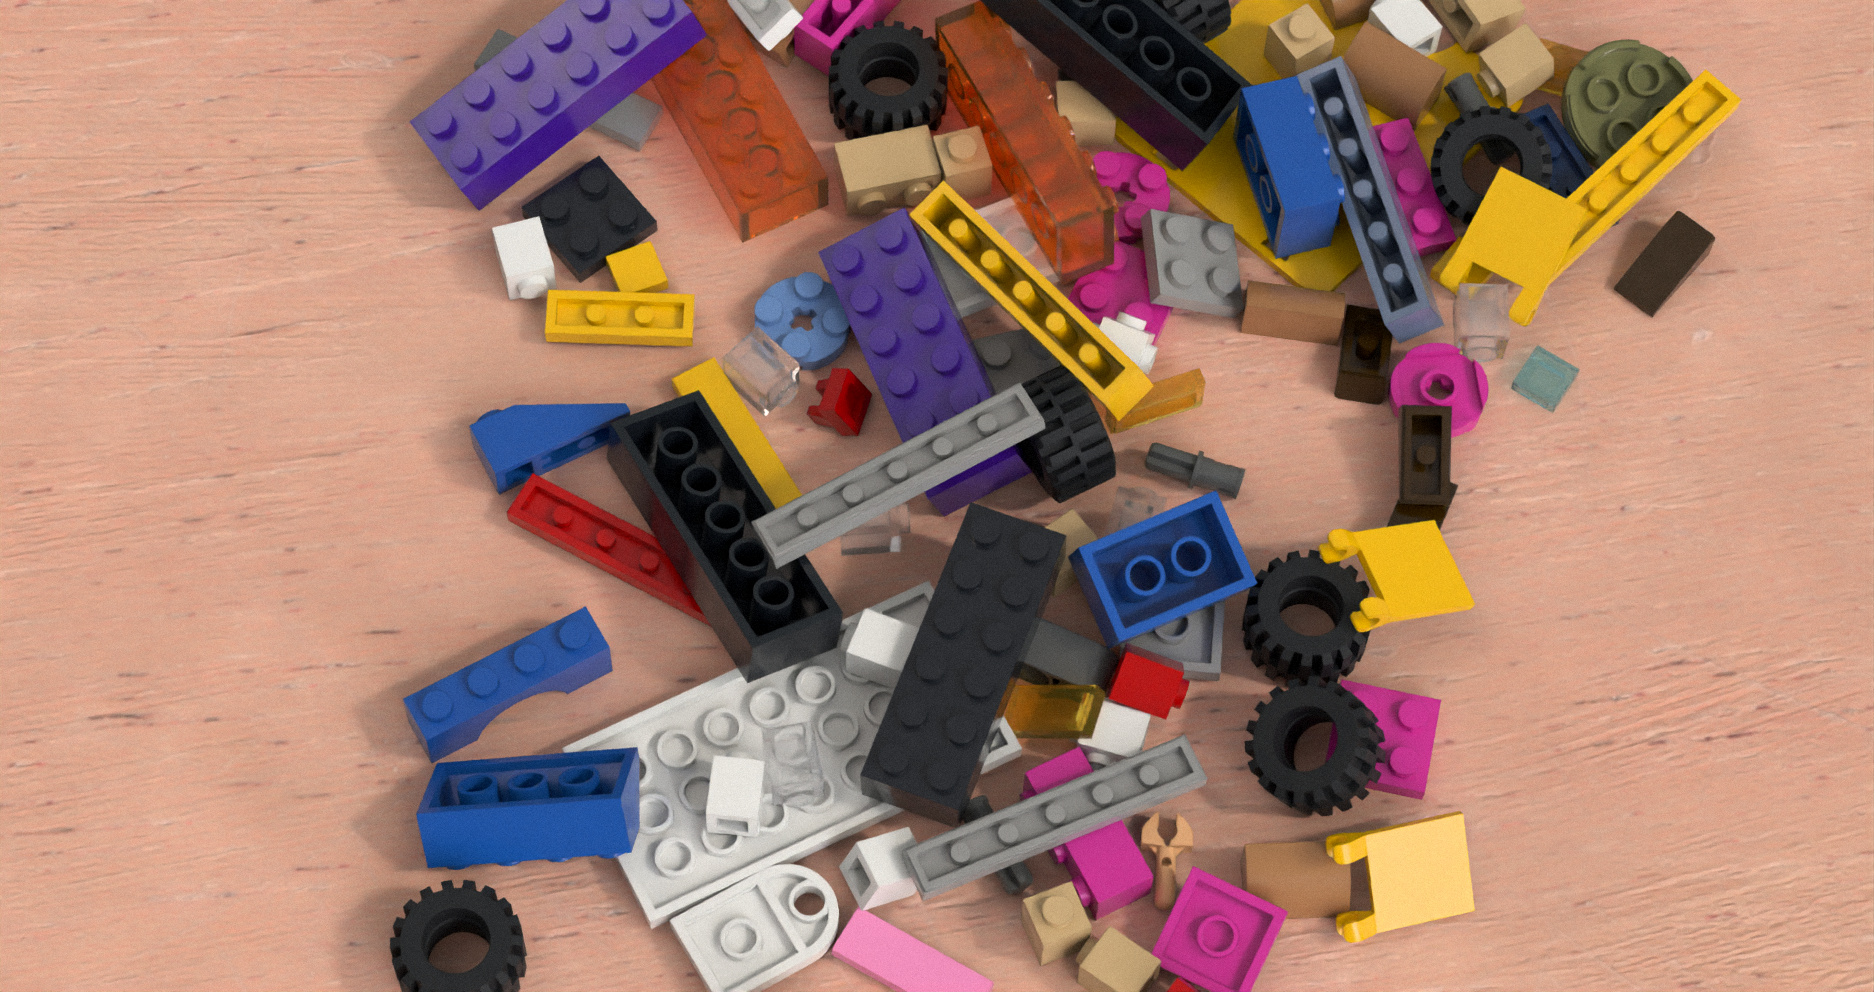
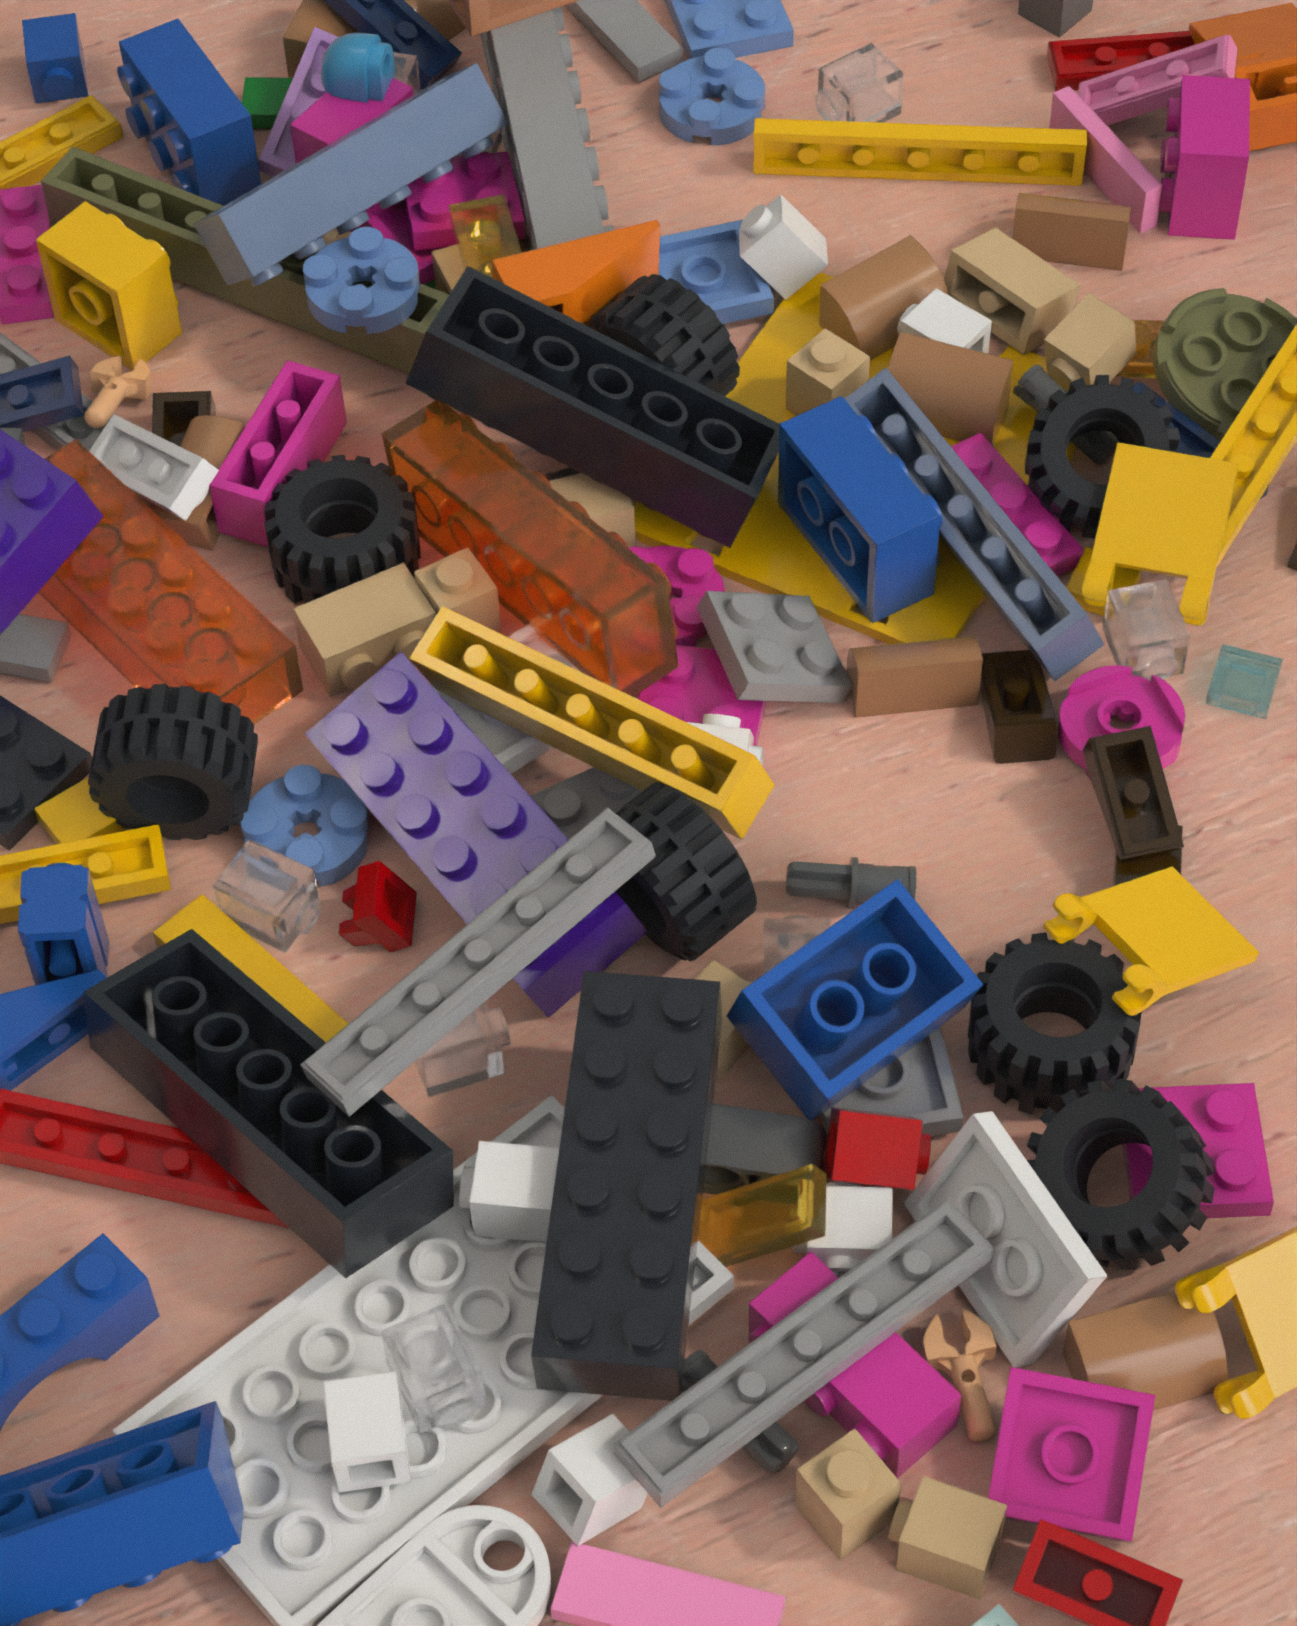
camera: 10 degrees left, 10 degrees down
(606, 362) = (61, 923): none -> blue brick
(715, 252) = (173, 761): none -> black tyre
(1163, 400) = (789, 809): clear yellow tile -> none
(1236, 796) = (1038, 1261): none -> white plate

